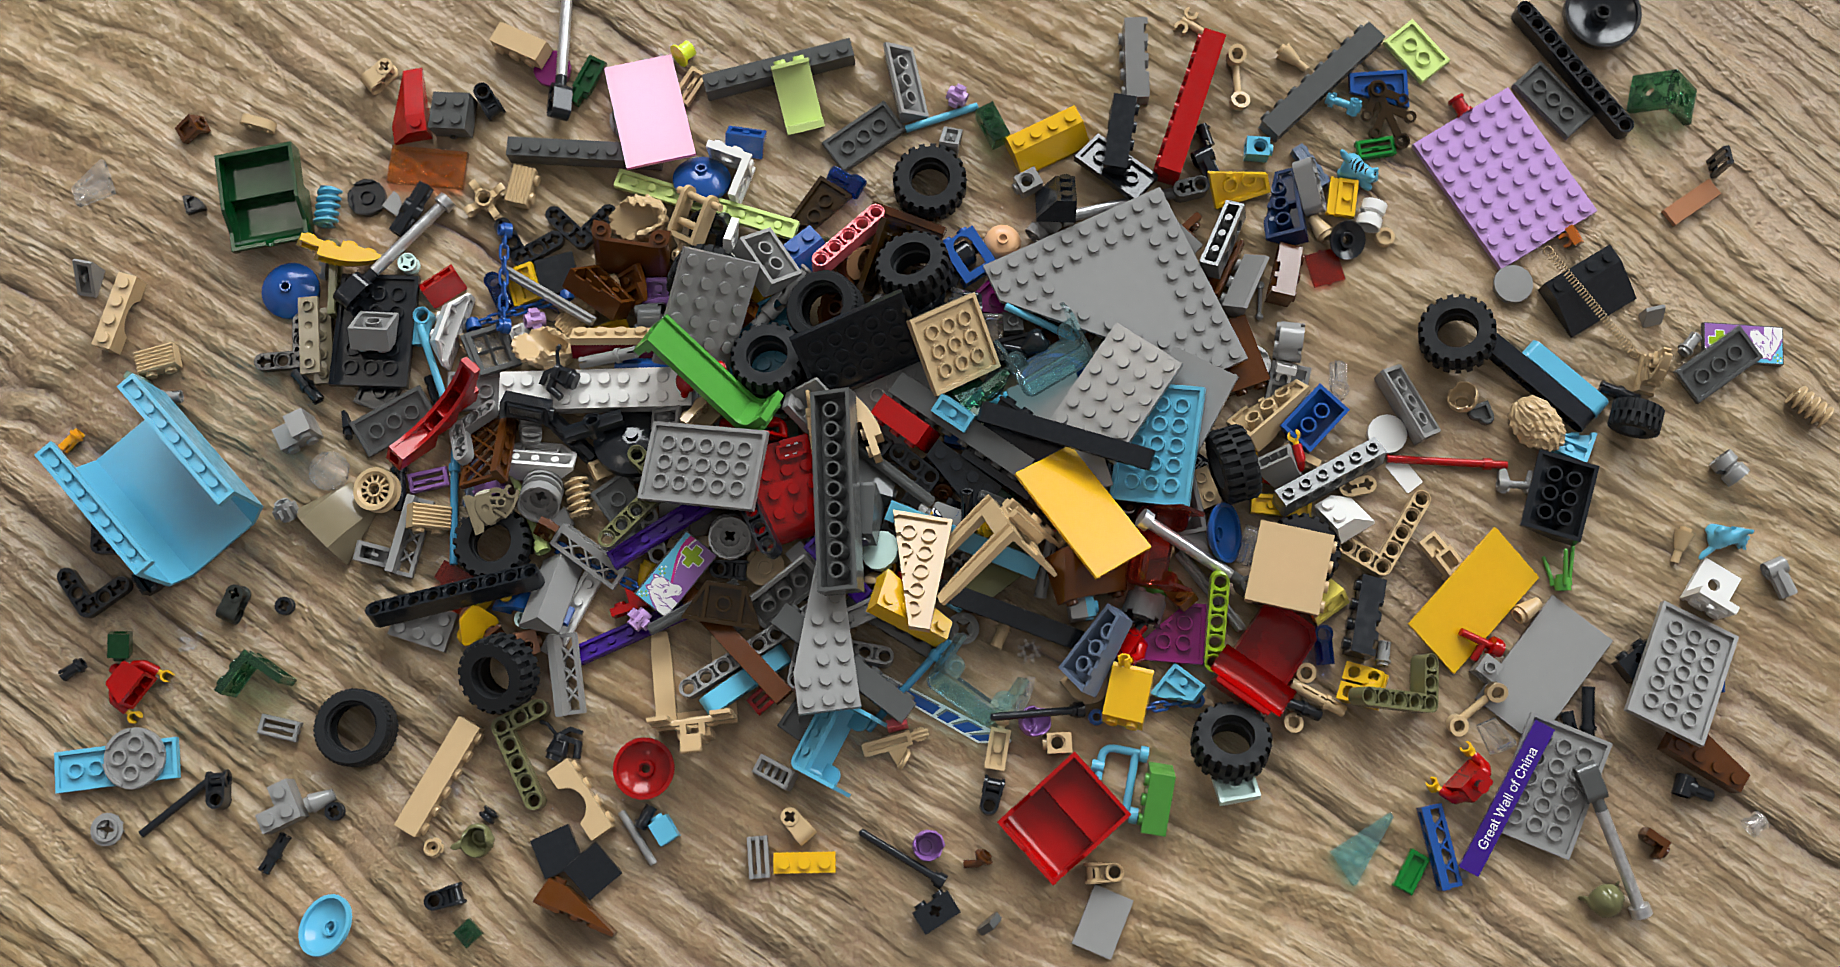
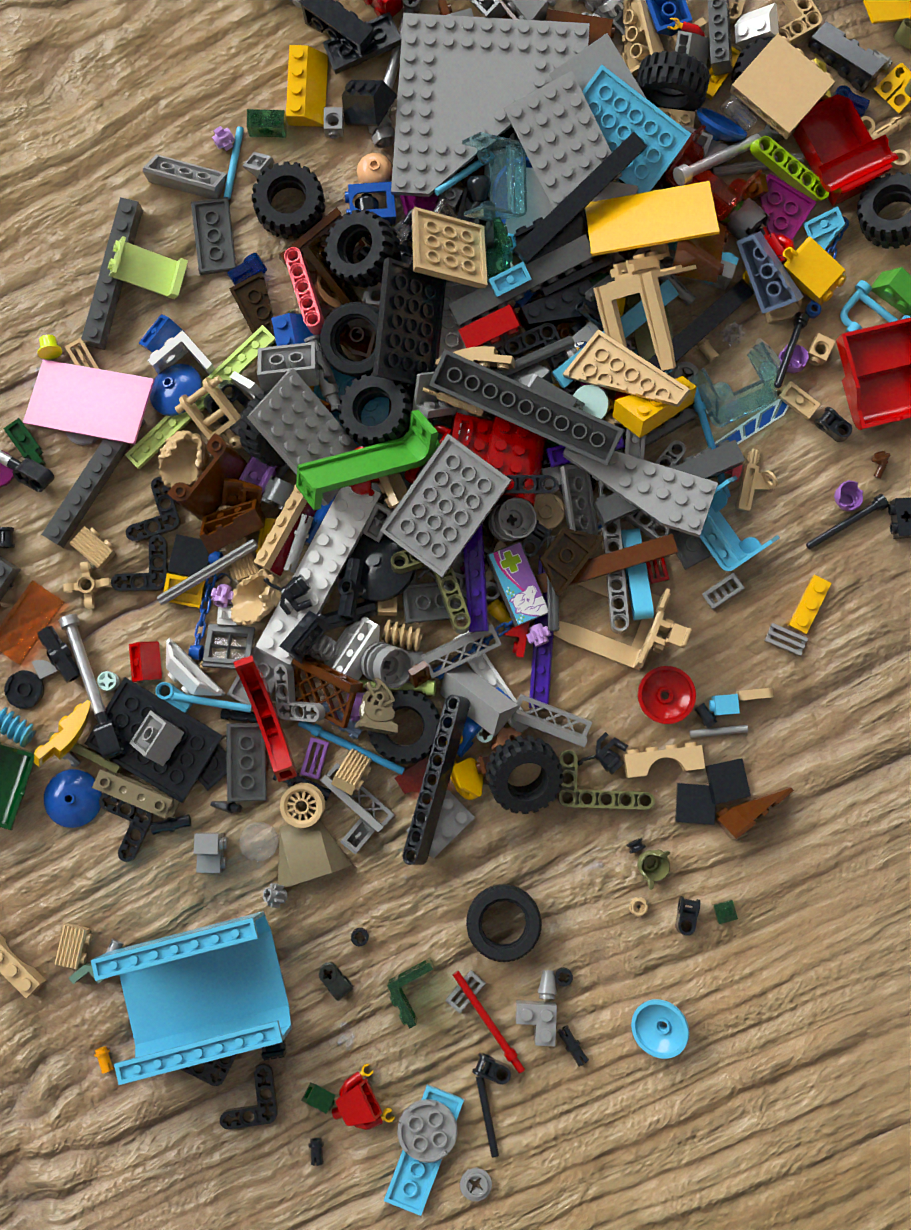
camera: 65 degrees left, 5 degrees up
(241, 797) = (509, 1053): none -> red bar
(439, 777) = (582, 872): tan brick -> none
(495, 290) = (183, 615): clear blue piece -> none
(504, 324) = (129, 579): blue piece -> none
(689, 853) = (755, 694): none -> tan beam
(800, 828) = (779, 593): tan piece -> none
(1302, 709) = (895, 142): black pin -> none

